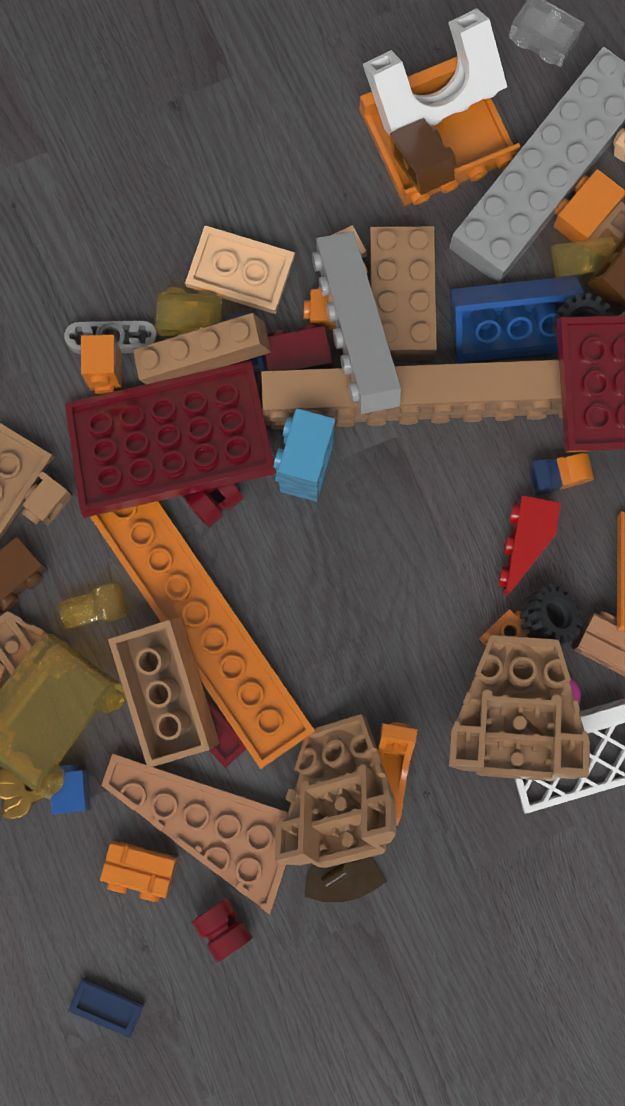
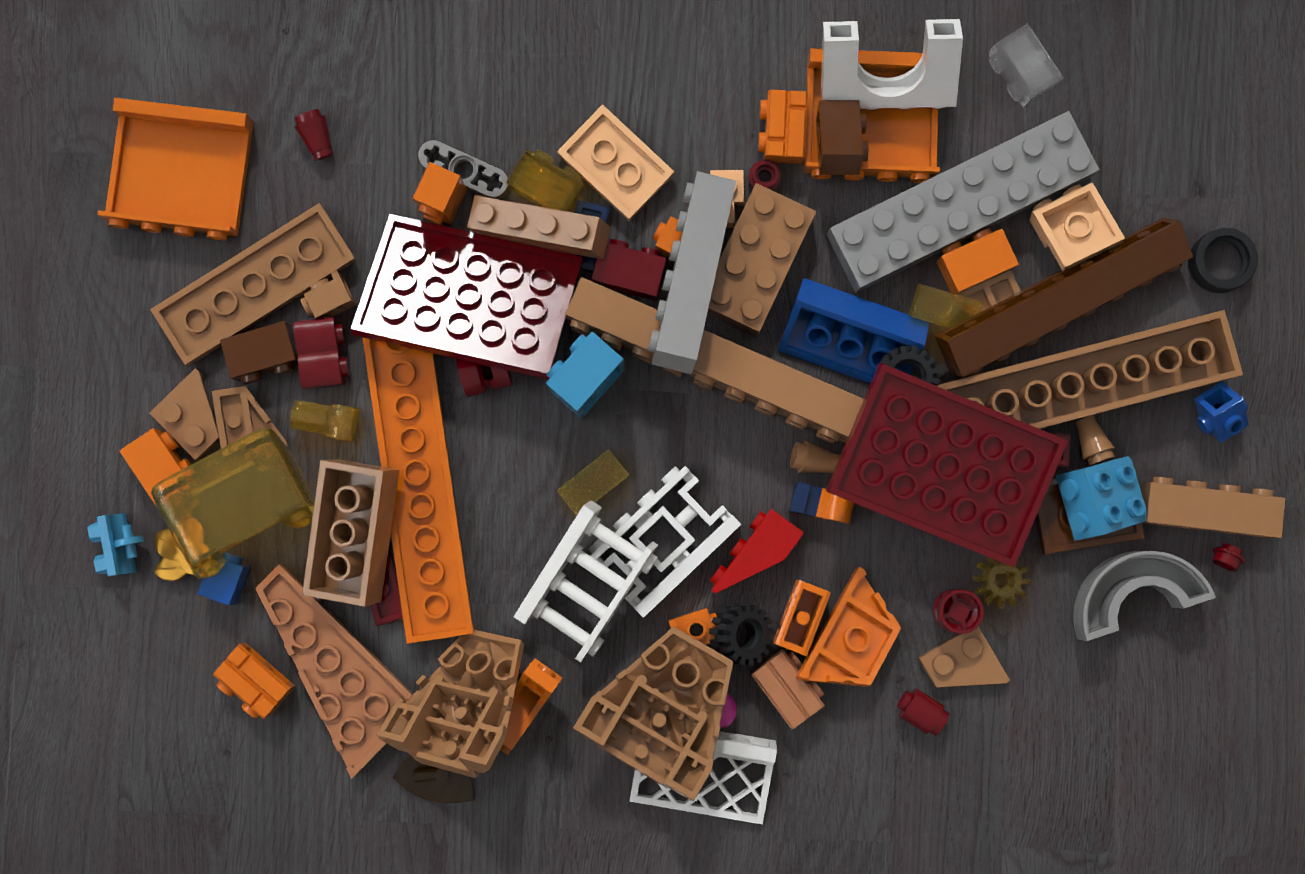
camera: 25 degrees right, 5 degrees up
(60, 551) = (320, 354): none -> dark red brick
(106, 1007) = (167, 789): dark blue tile -> none
(222, 930) = (301, 772): dark red wheel -> none
(355, 550) = (593, 481): none -> clear yellow plate
(368, 615) = (553, 579): none -> white fence
(370, 173) = (784, 126): none -> orange brick
(371, 213) = (765, 166): none -> dark red plate
(464, 578) = (680, 557): none -> white fence
(535, 438) = (812, 459): none -> medium nougat cone
(595, 576) = (801, 617): none -> orange brick

